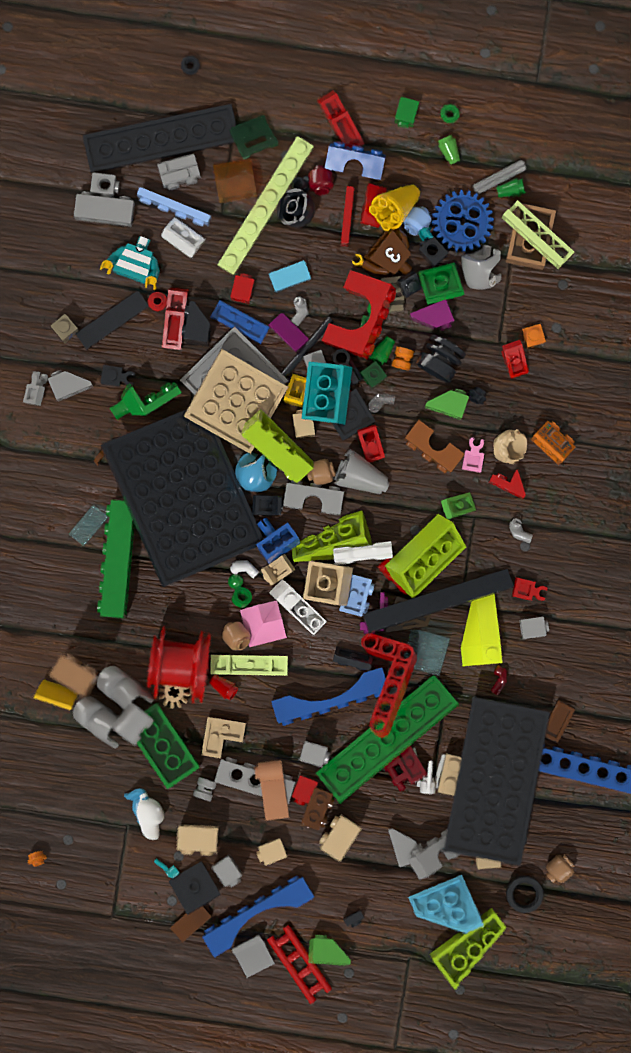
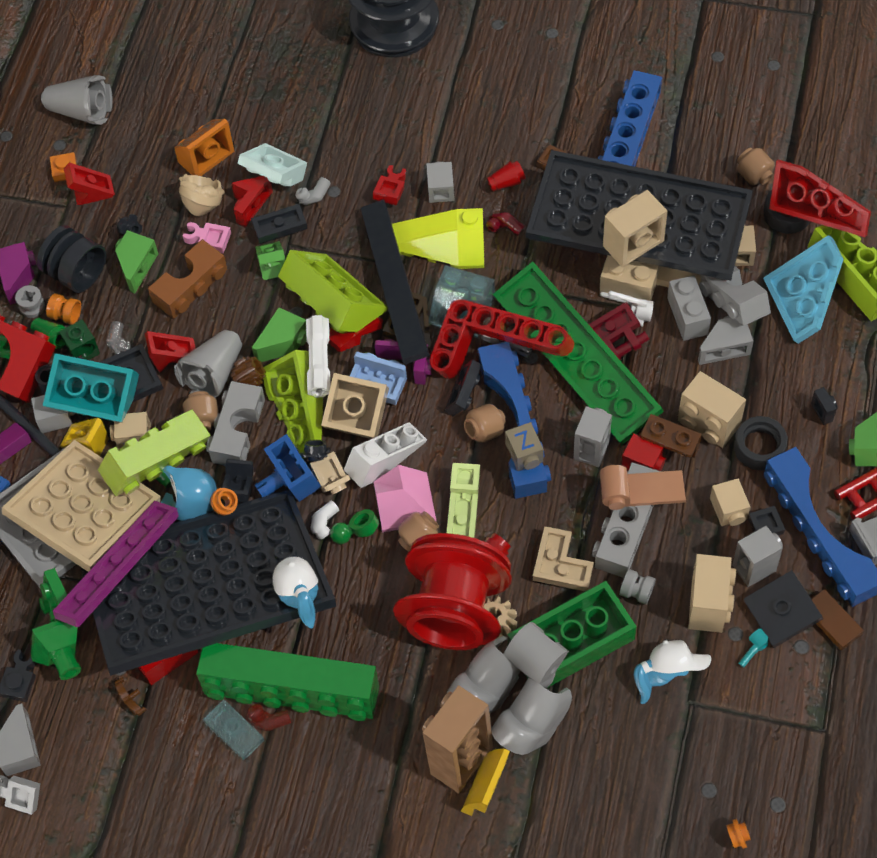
camera: 80 degrees left, 25 degrees down
(95, 547) = (266, 720): none -> clear red arm
(172, 559) = (297, 587): none -> white hair
(189, 434) = (115, 564): none -> magenta plate
(244, 503) = (230, 501): none -> orange plate
(258, 876) = (766, 517): none -> black plate
(288, 559) = (315, 450): none -> black plate
(296, 706) = (524, 447): none -> dark tan brick
(321, 887) = (759, 424): none -> black tyre
(325, 676) = (484, 423): none -> medium nougat head
(354, 502) = (248, 371): none -> reddish brown gear
(388, 522) = (281, 336): none -> bright green slope
(406, 334) = (27, 307): none -> light grey wheel
(429, 820) = (689, 307): none -> light grey brick
(469, 778) = (634, 228): none -> tan brick
(488, 508) = (279, 223): none -> black plate
(516, 907) = (813, 199): none -> red wedge
(534, 499) = (274, 164): none -> light aqua plate
(542, 679) = (507, 176): none -> red cone
(592, 338) = (81, 99): none -> light grey cone

